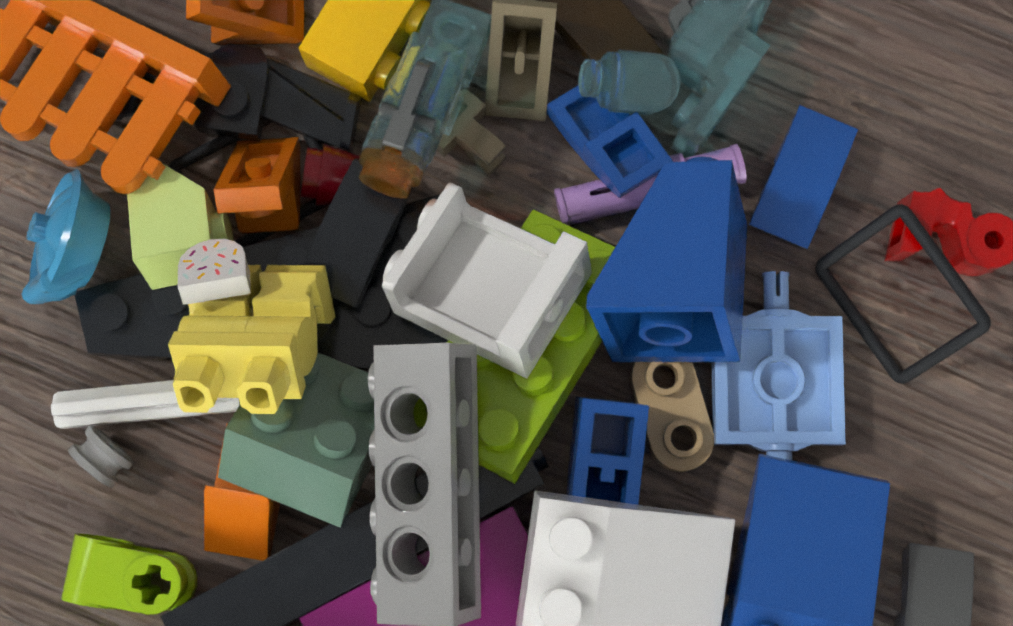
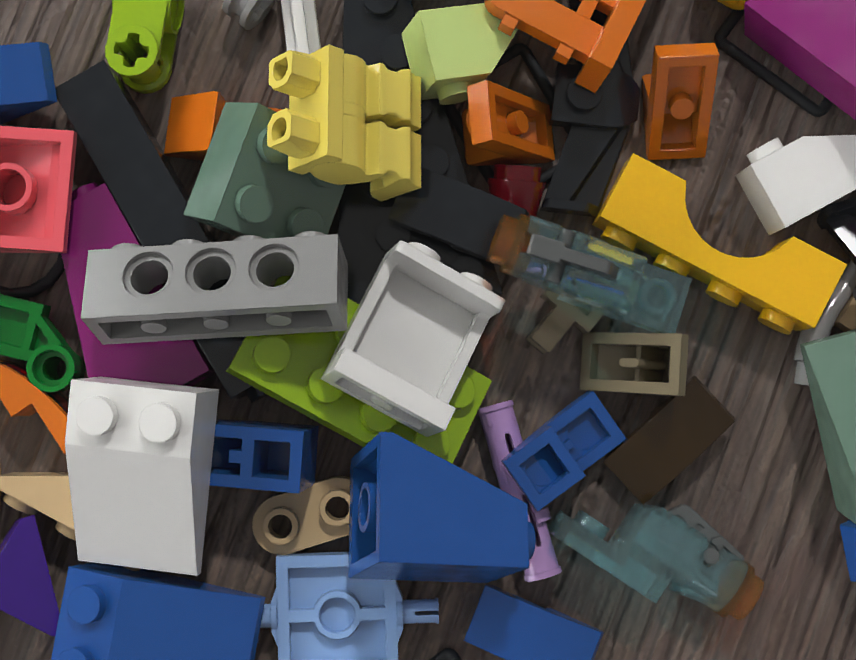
camera: 90 degrees right, 5 degrees up
(213, 271) = (406, 83): white tile -> none
(630, 81) = (615, 469): clear light blue arm -> none

